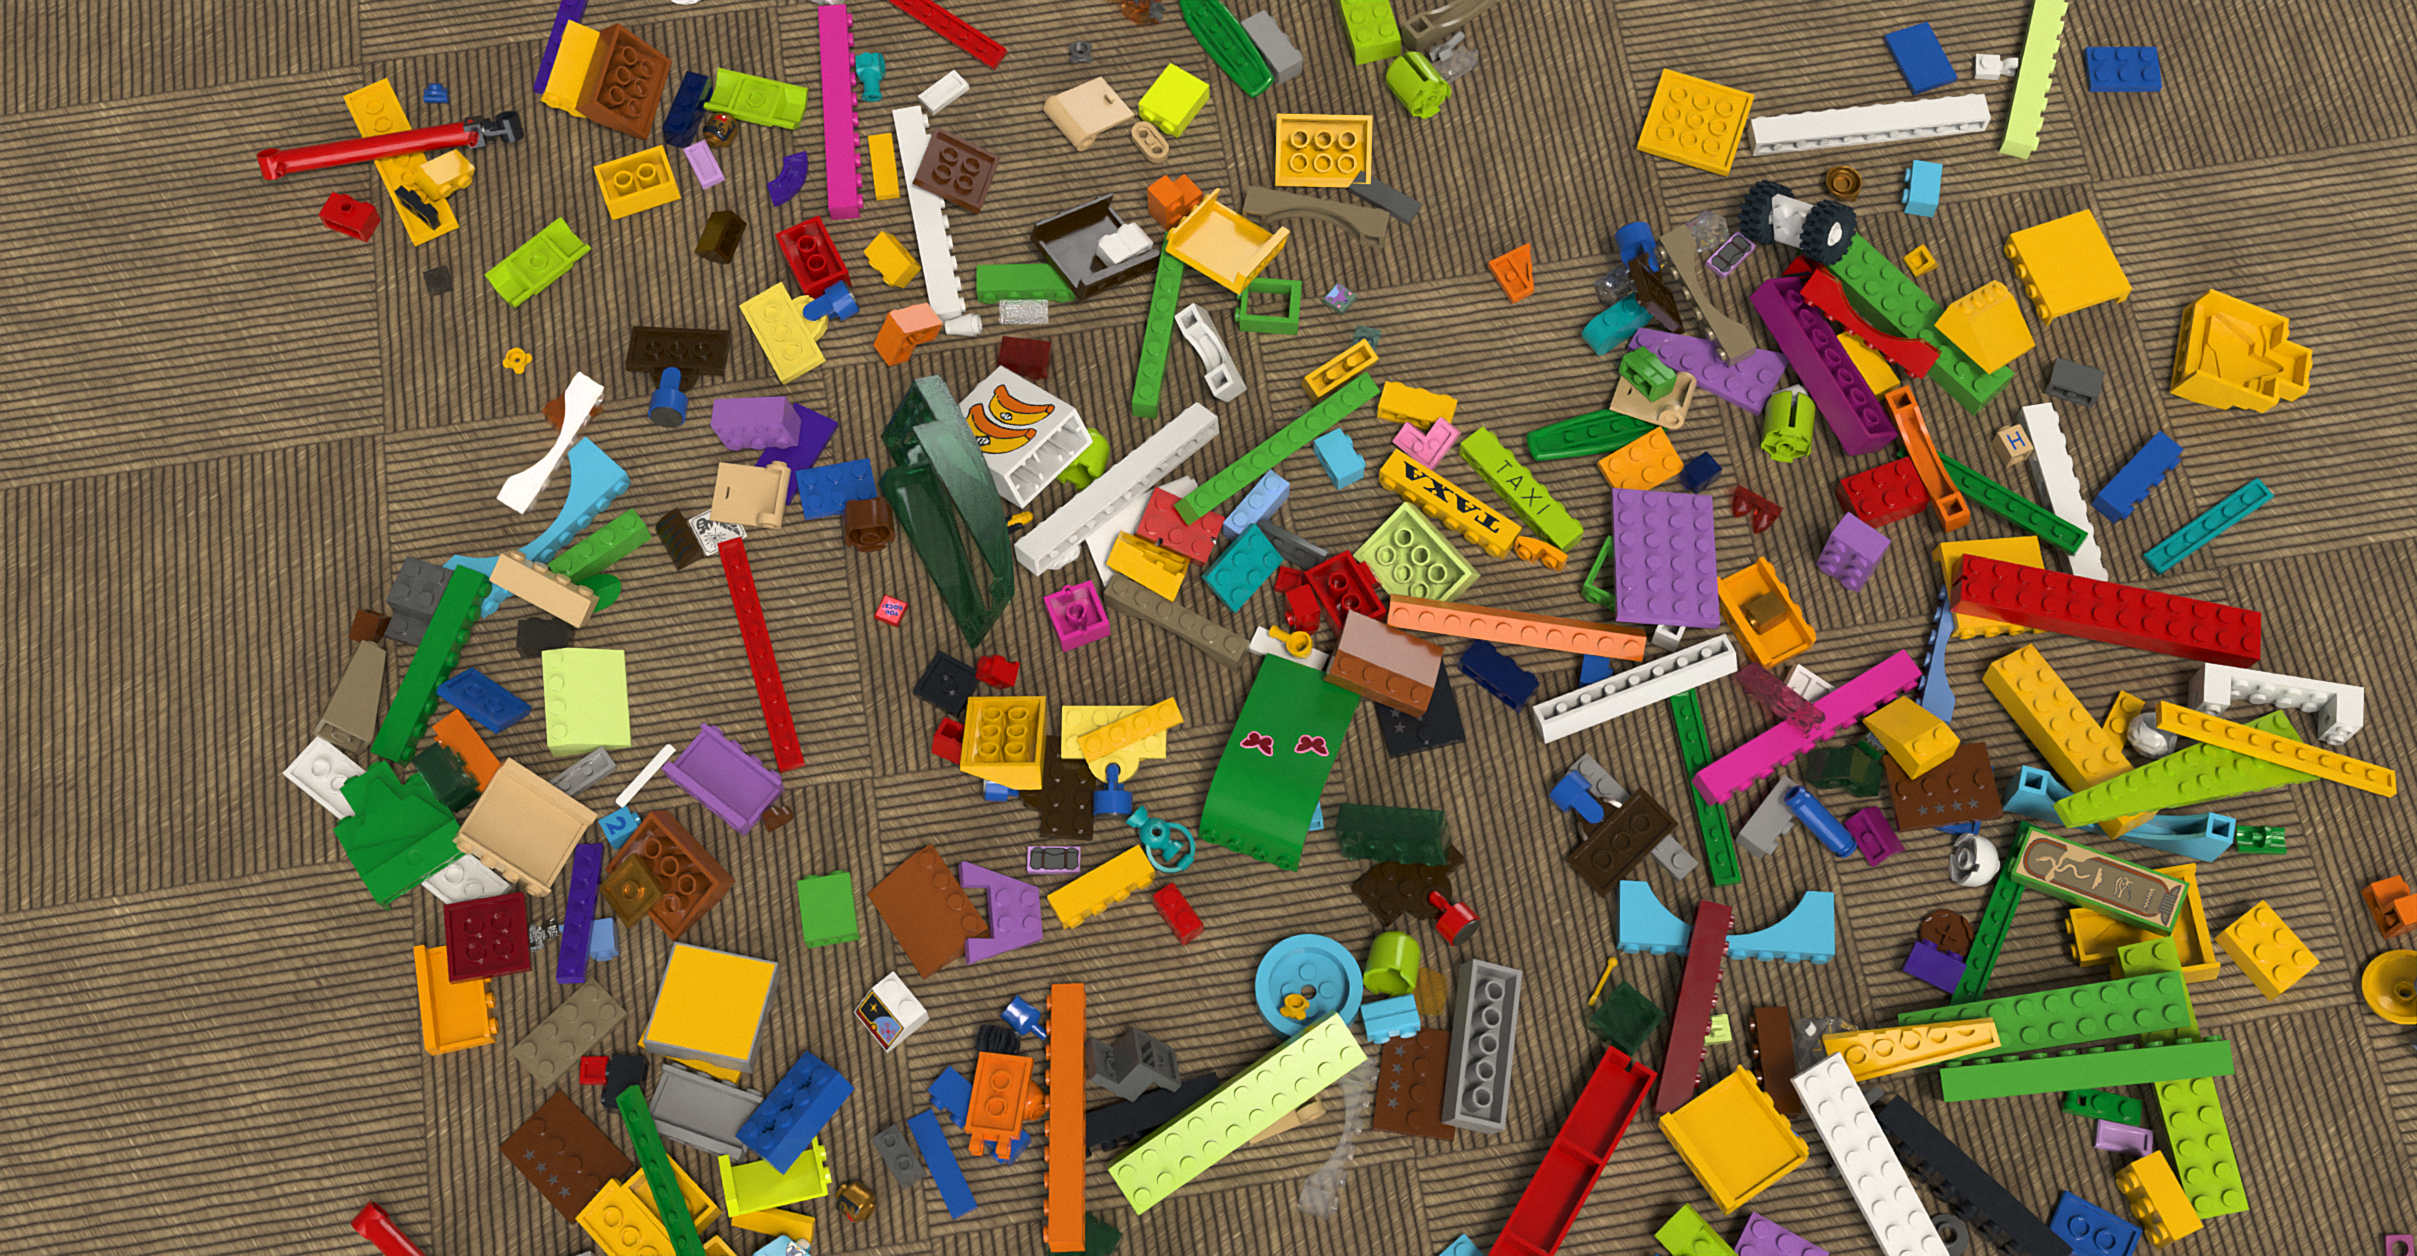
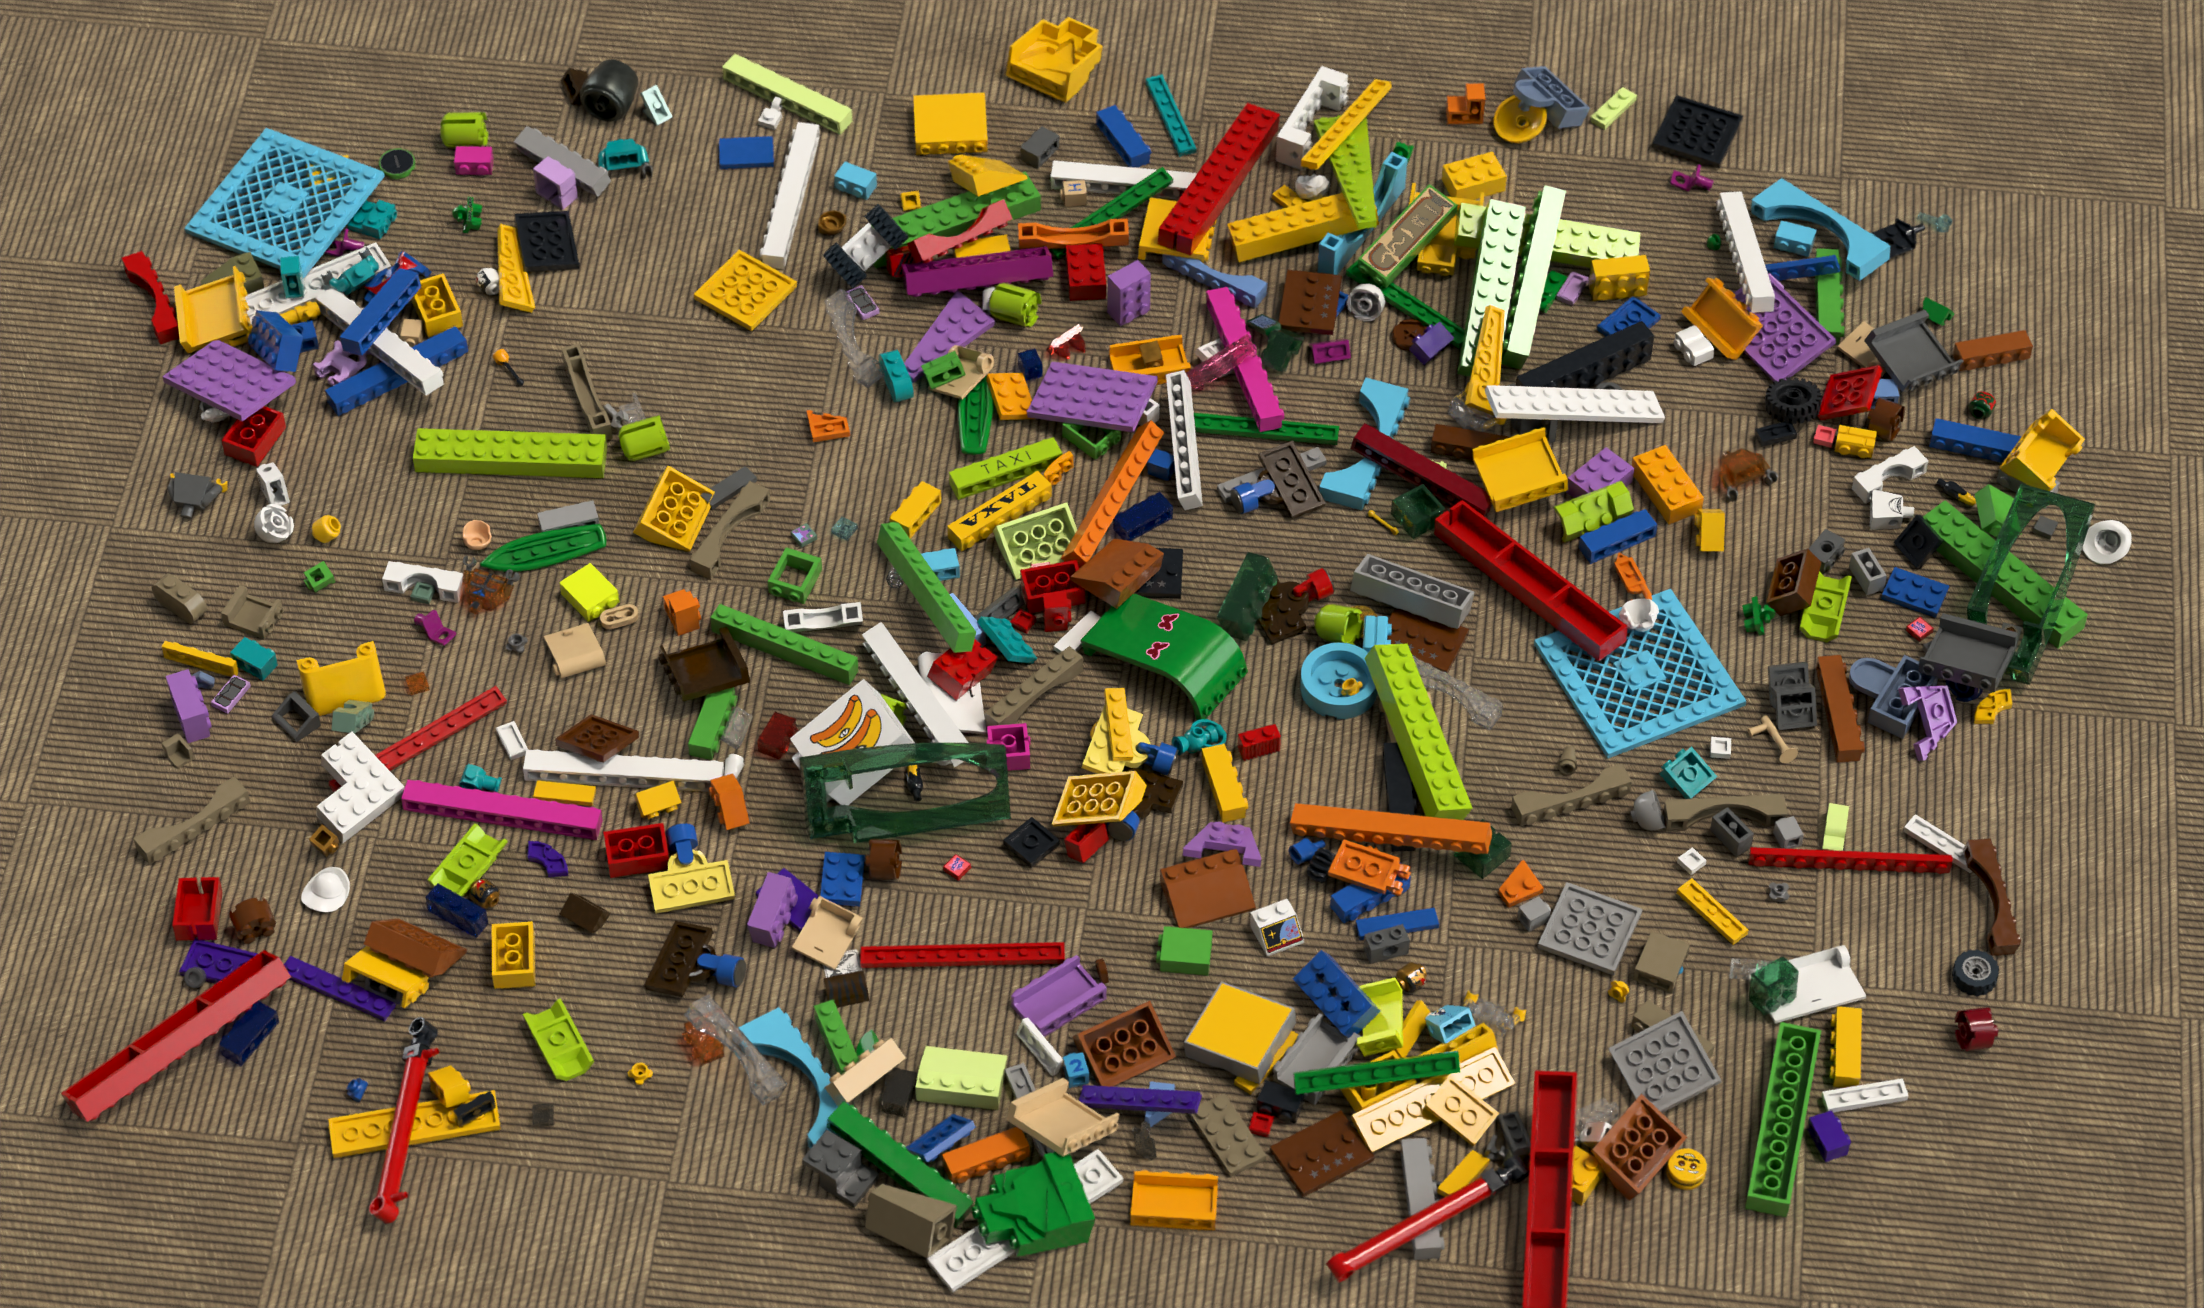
camera: 75 degrees left, 15 degrees down
(350, 216) = (455, 1167): red brick -> none
(369, 626) = (844, 1211): reddish brown brick -> none
(447, 776) = (1009, 1150): clear green piece -> none
(487, 938) = (1142, 1159): dark red plate -> none
(632, 890) = (1131, 1067): pearl gold plate -> none
(704, 164) = (509, 913): lavender tile -> none
(997, 671) = (1035, 805): red brick -> none
(1053, 860) = (1191, 809): tile -> none
(1122, 245) = (712, 647): white brick -> none
(1132, 1064) = (1365, 786): dark grey bracket -> none
(1148, 564) = (987, 690): yellow wedge -> none
(1224, 244) = (740, 581): yellow panel -> none
(1294, 641) = (1077, 617): yellow bar -> none
(1339, 371) = (869, 545): yellow brick -> none
(1427, 448) = (951, 509): bright pink plate -> none
(1637, 253) = (881, 339): dark brown plate -> none
(1730, 337) = (861, 319): dark tan arch -> none
(1768, 822) = (1299, 397): light grey brick -> none
(1820, 821) = (1314, 369): blue axle -> none
(1912, 736) = (1271, 301): yellow slope -> none
(2122, 69) = (804, 48): blue plate -> none

